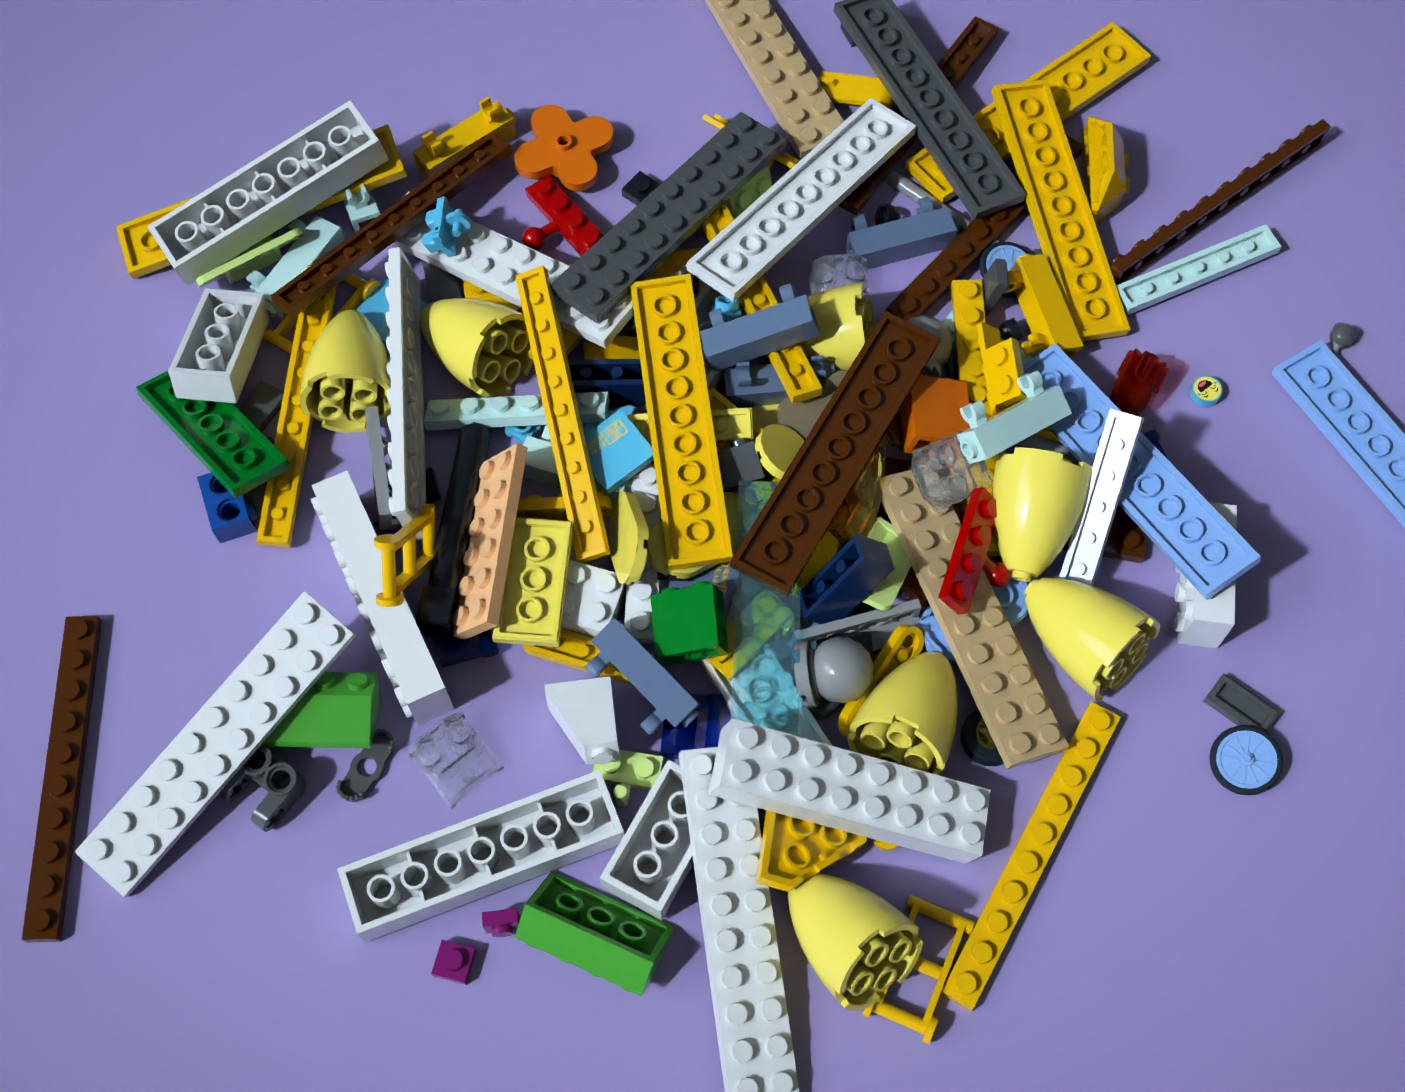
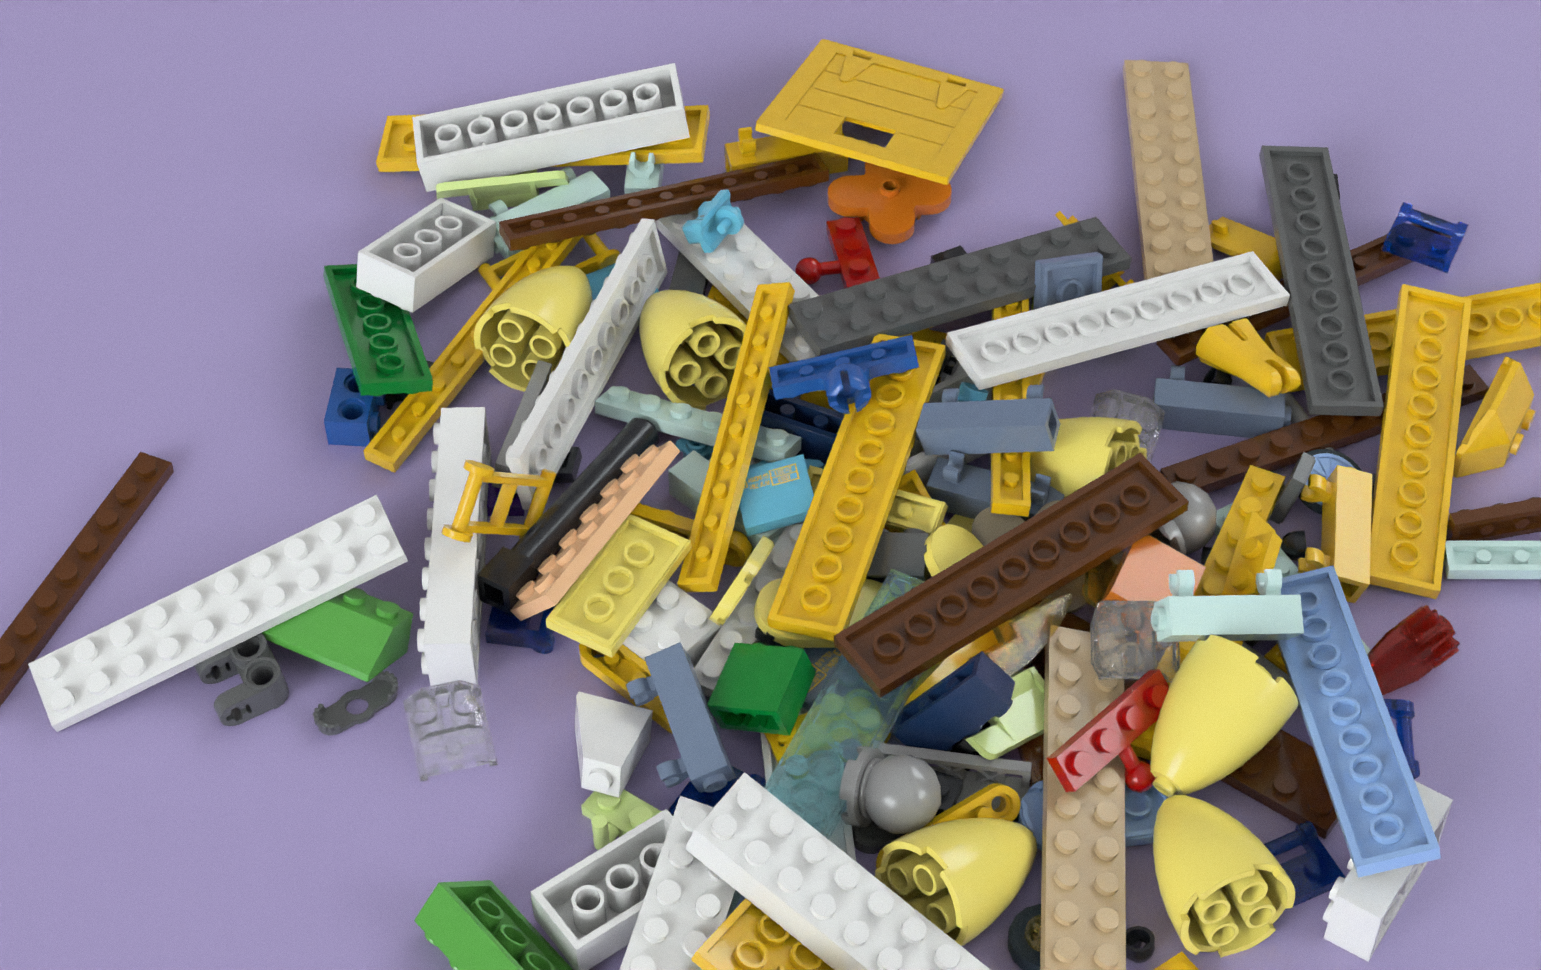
camera: 25 degrees right, 15 degrees down
(262, 405) = (439, 330): dark grey tile -> none
(453, 962) = (341, 924): magenta plate -> none
(480, 856) = (422, 828): white brick -> none
(501, 922) = (406, 900): magenta plate -> none
(525, 60) = (926, 109): none -> yellow door
(626, 329) = (844, 373): none -> blue plate
(749, 179) = (1067, 278): none -> sand blue tile
(903, 188) = (1247, 356): none -> yellow piece
(984, 44) = (1422, 245): none -> clear blue plate
(1066, 709) = (1134, 939): none -> black hinge
(1103, 496) = (1295, 729): white plate -> none
(1149, 591) = (1310, 872): none -> clear blue plate
(1205, 391) = (1500, 690): tile -> none

